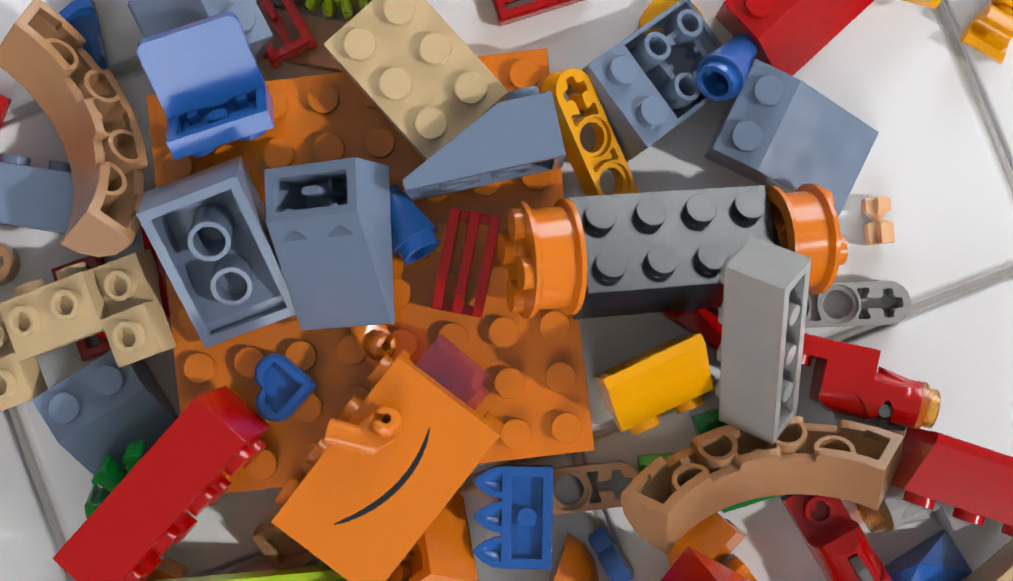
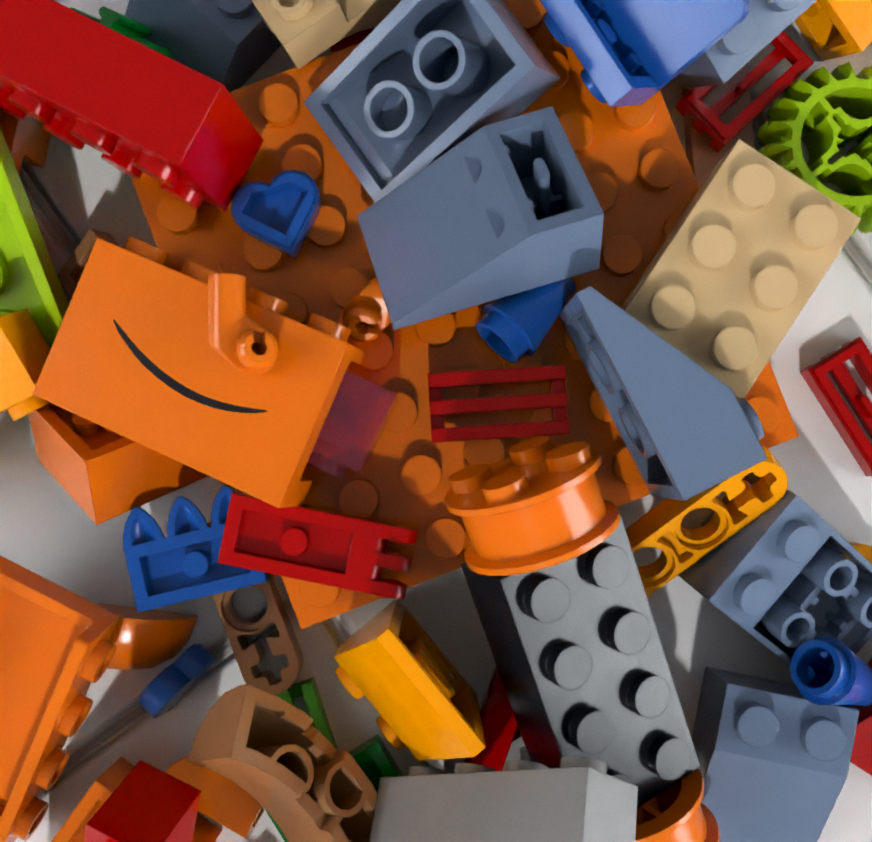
camera: 75 degrees right, 0 degrees up
(534, 421) = (314, 545): none -> red hinge

